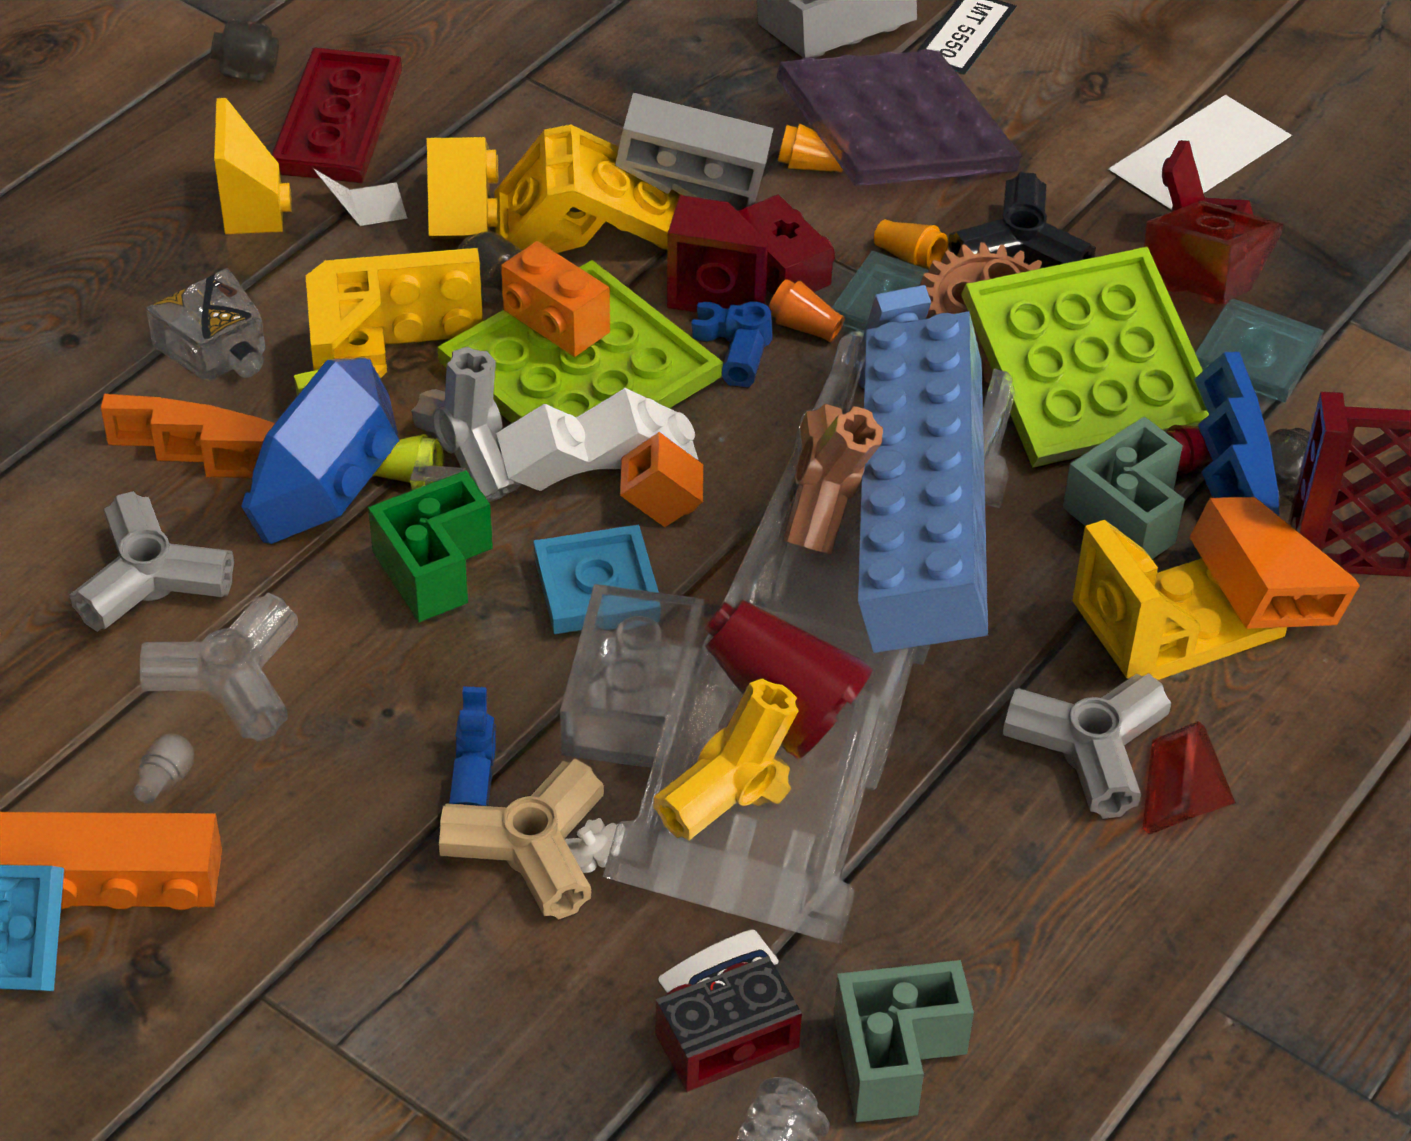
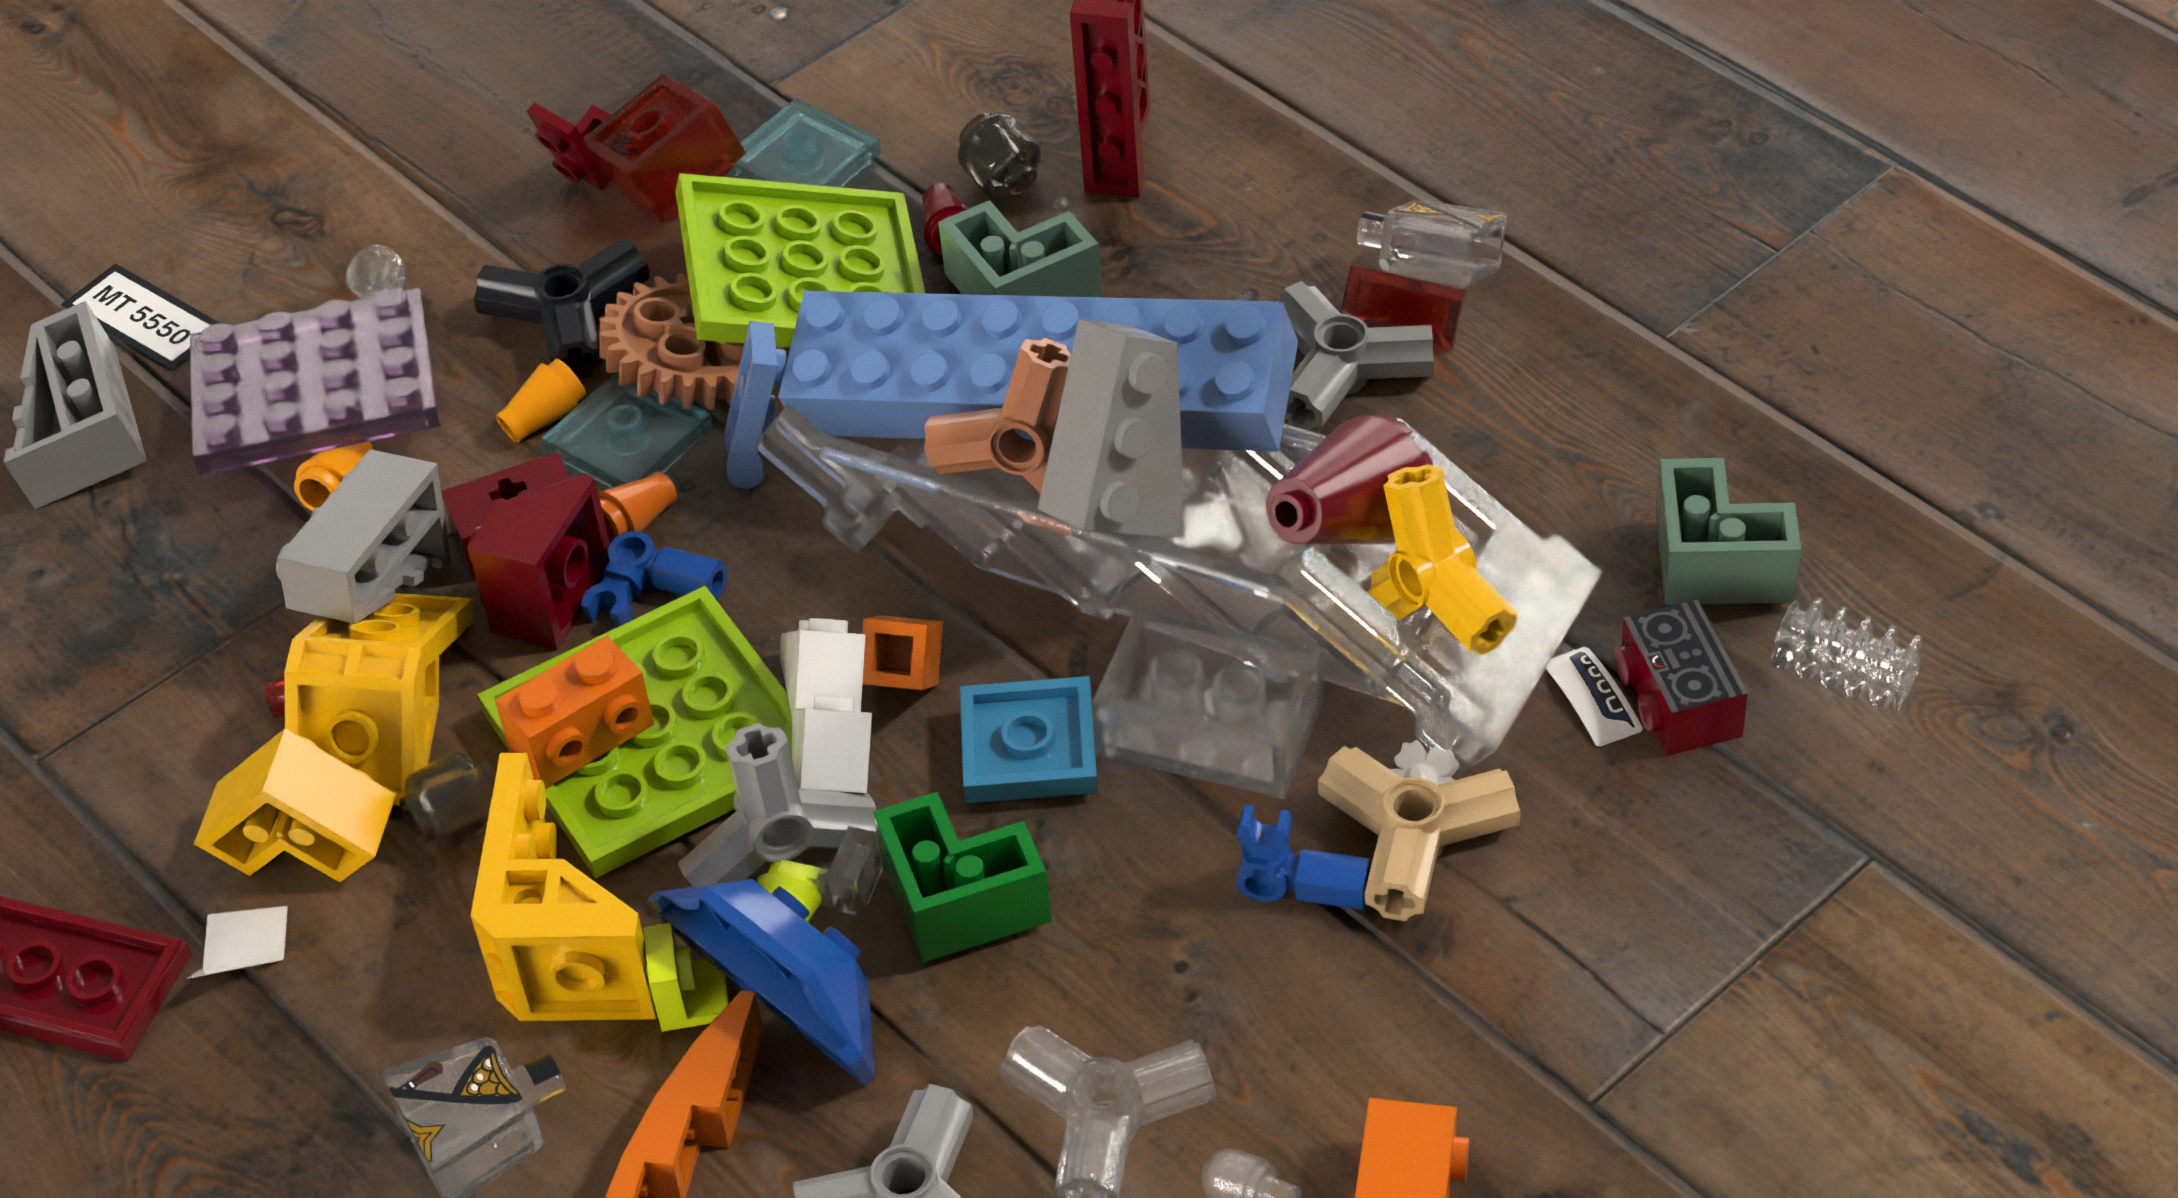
camera: 75 degrees left, 0 degrees up
(247, 177) = (169, 1062): yellow slope -> none
(806, 511) = (1118, 435): none -> light grey wedge
(1031, 130) = (375, 270): none -> clear tile
(1153, 618) = (1184, 252): yellow bracket -> none
(1222, 141) = (454, 152): white sticker -> none
(1235, 434) = (984, 169): blue slope -> none
(1252, 788) = (1436, 241): none -> clear torso
(1269, 567) = (1157, 178): orange slope -> none

